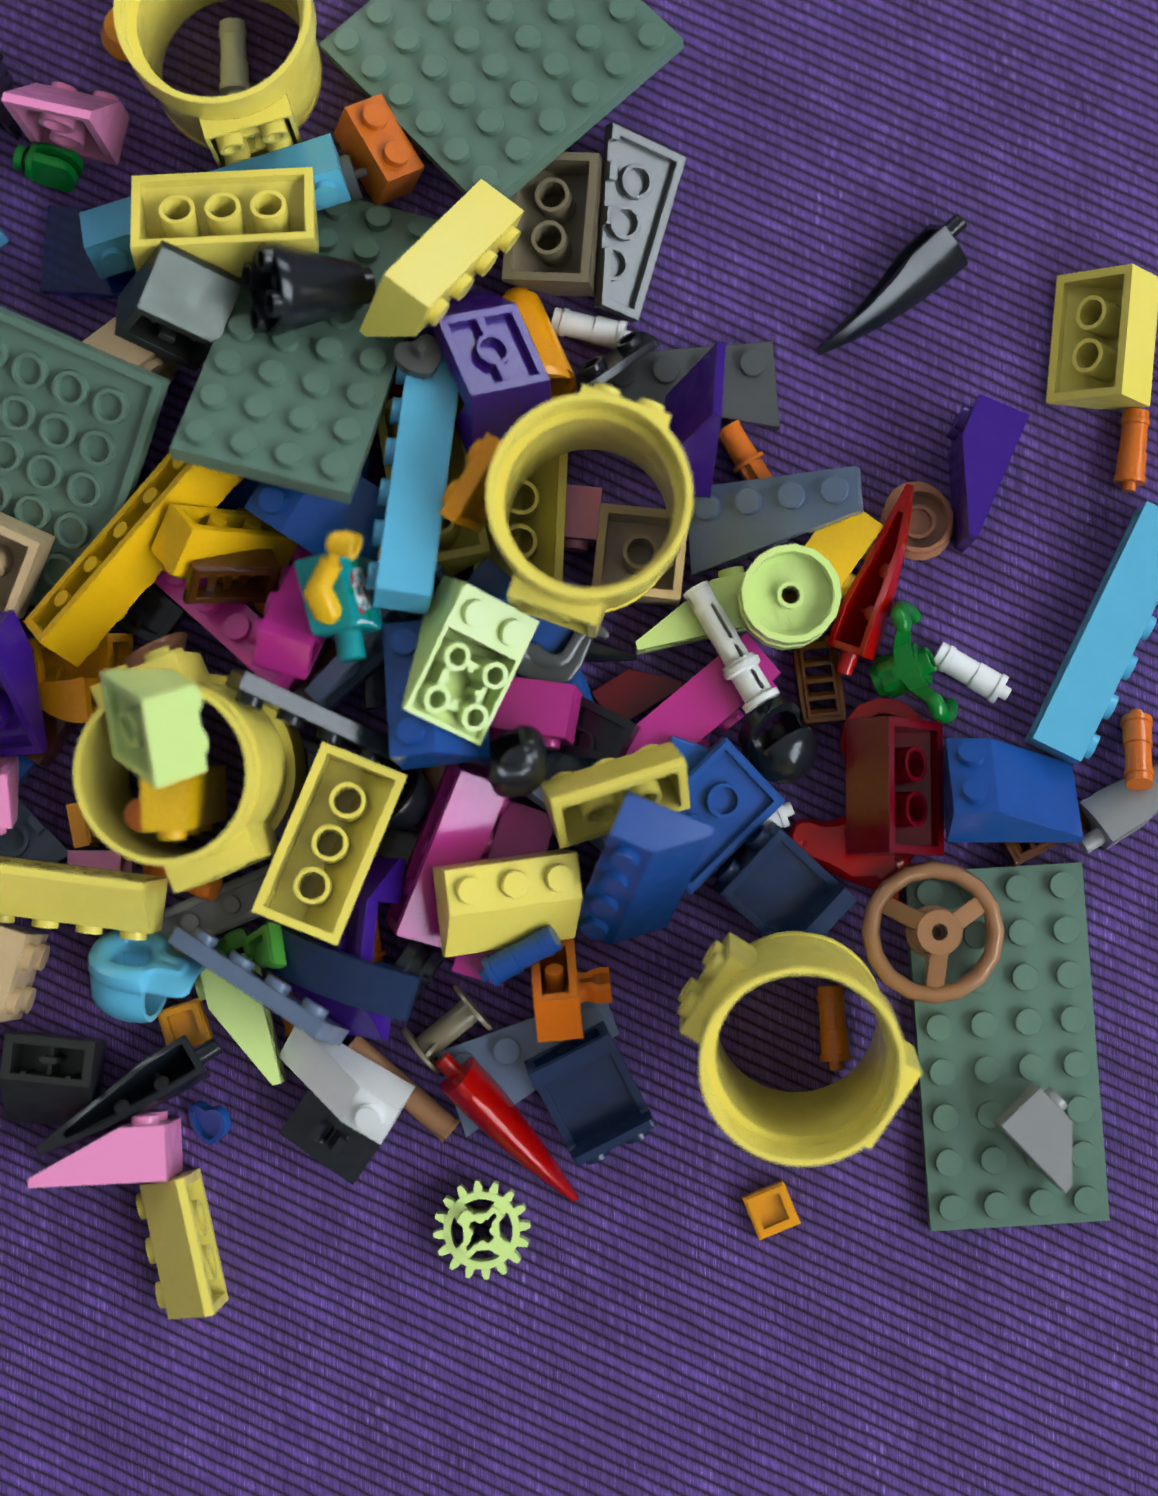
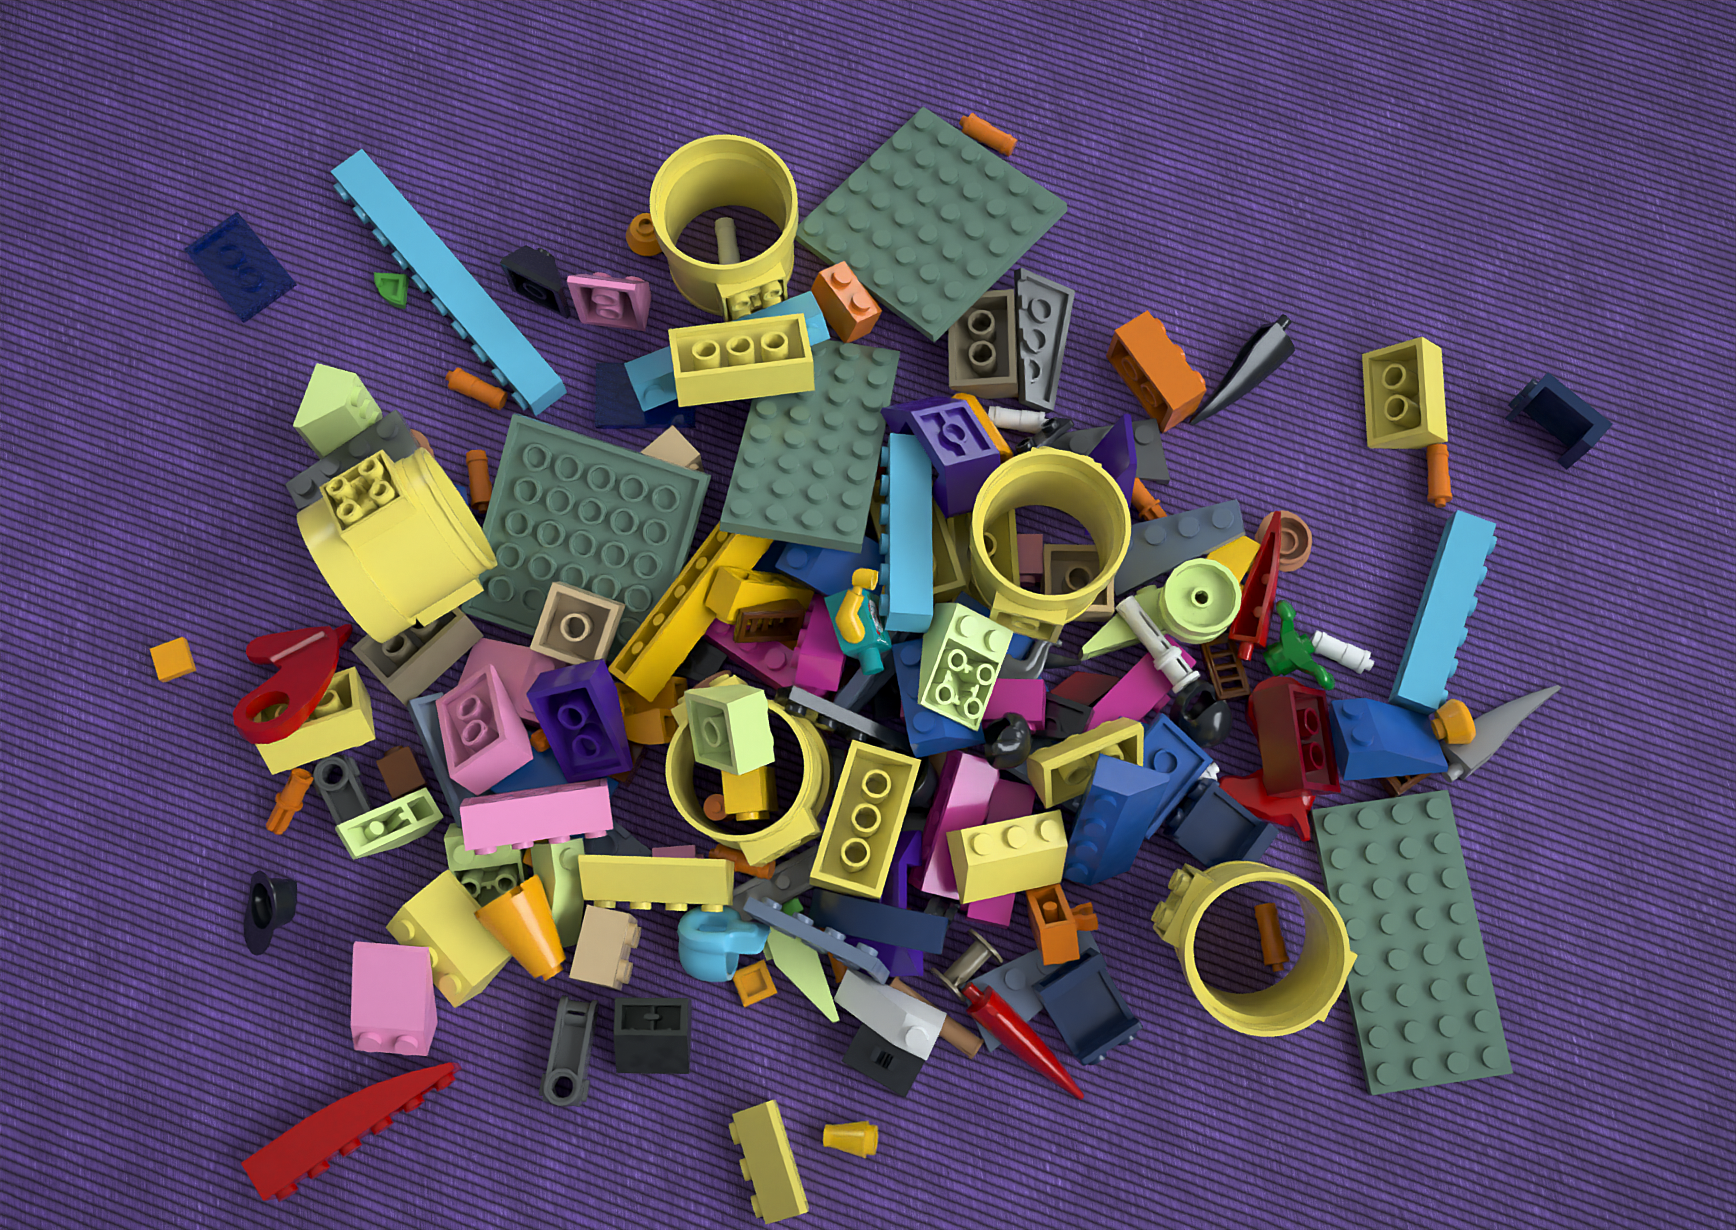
camera: 10 degrees left, 10 degrees down
(49, 165) = (595, 333): green arm -> none
(81, 833) = (660, 828): light orange tile -> none
(134, 1153) = (718, 1088): bright pink slope -> none
(142, 1089) = (727, 1035): black piece -> none
(176, 305) = (710, 421): pearl dark grey slope -> none
(209, 1122) = (781, 1060): blue piece -> none
(266, 946) = (820, 907): bright green tile -> none
(288, 1224) = (854, 1138): none -> yellow cone
(302, 288) = (804, 399): black cone -> none
(351, 176) = (829, 322): dark grey piece -> none
(419, 357) = (898, 443): dark grey piece -> none
(443, 263) = (910, 374): light yellow slope -> none
(466, 497) = (954, 540): light orange plate -> none
(497, 1243) = (1025, 1136): yellowish green gear -> none
(519, 956) = (1022, 897): blue piece -> none
(771, 1210) = (1240, 1090): light orange tile -> none
(777, 279) = (1156, 371): none -> orange brick
(933, 932) = (1344, 850): medium nougat piece -> none
(977, 461) = (1325, 492): dark purple slope -> none
(1042, 1133) = (1451, 1005): light grey slope -> none
(1099, 781) = (1453, 723): none -> light orange cone
(1137, 748) = (1478, 698): orange piece -> none

